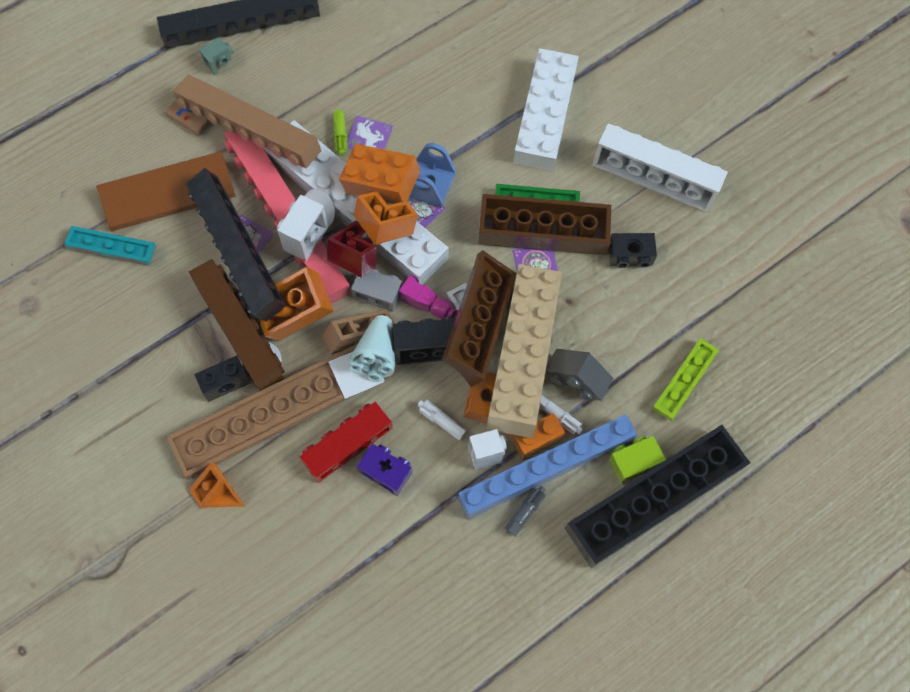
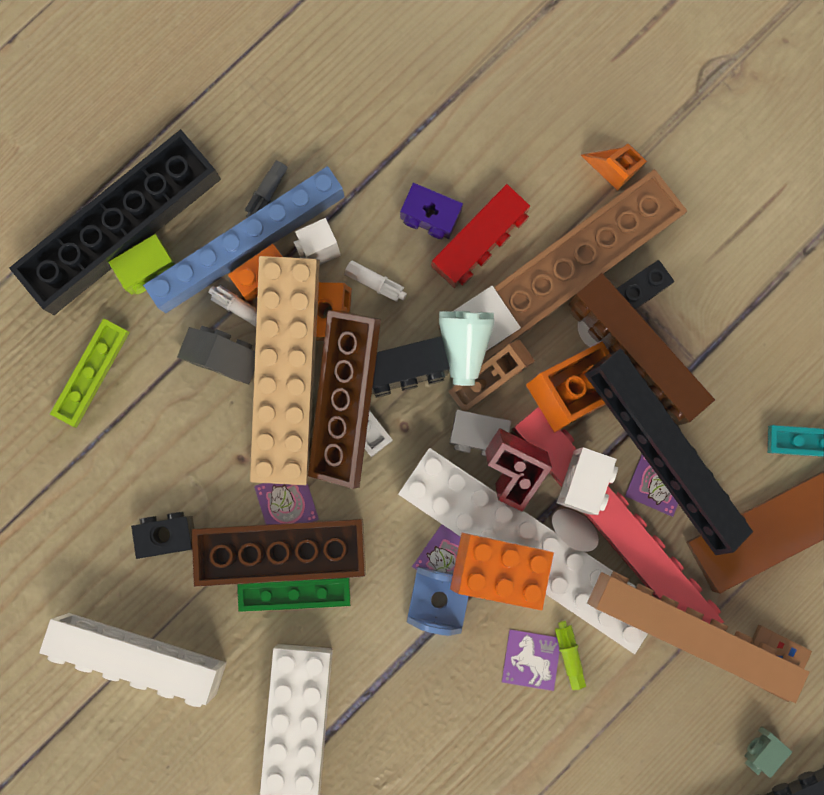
camera: 175 degrees right, 15 degrees up
(384, 221) = (486, 500): orange brick -> none
(425, 299) = (418, 428): dark pink piece -> none

